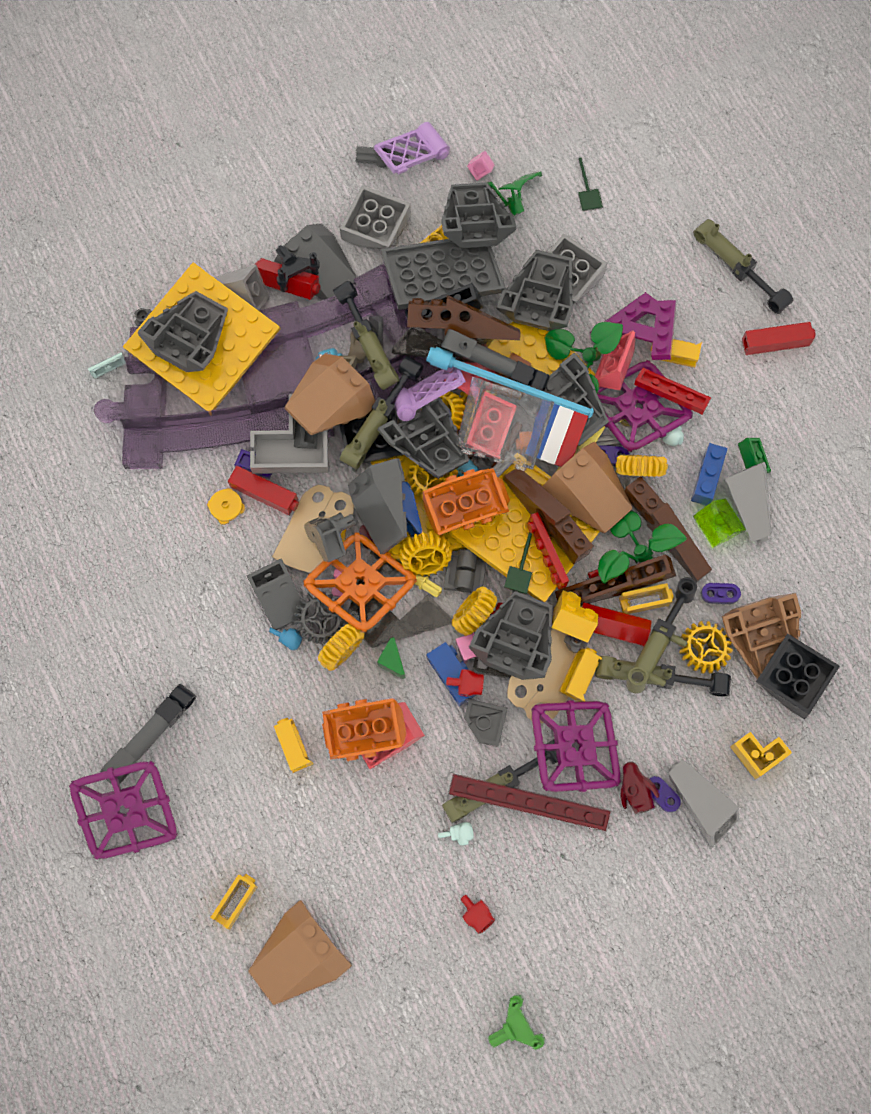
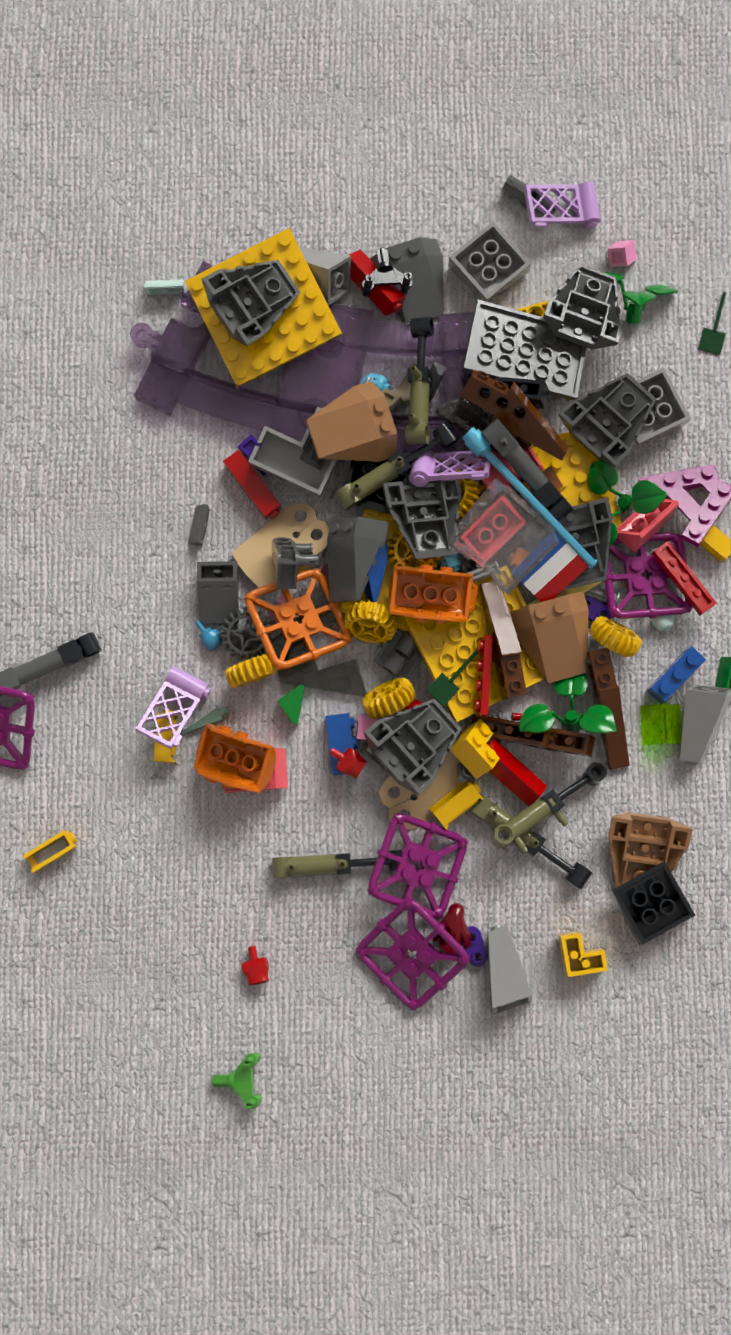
camera: 20 degrees right, 10 degrees up
(142, 312) = (220, 249): dark grey plate -> none
(225, 505) = (211, 482): yellow piece -> none
(232, 546) = (199, 525): none -> dark grey slope
(286, 690) = (188, 688): none -> lavender piece
(297, 957) = (82, 925): medium nougat wedge -> none
(327, 703) = (214, 716): none -> sand green piece
(427, 585) = (360, 651): light yellow axle -> none
(461, 832) = (278, 890): light aqua piece -> none
(485, 721) = (349, 802): dark grey plate -> none
(529, 802) = (339, 885): dark red tile -> none
(619, 838) = (425, 954): none -> magenta plate
(646, 599) = (553, 763): yellow window -> none
(713, 650) = (598, 824): yellow gear -> none
(720, 593) = (625, 791): dark purple plate -> none

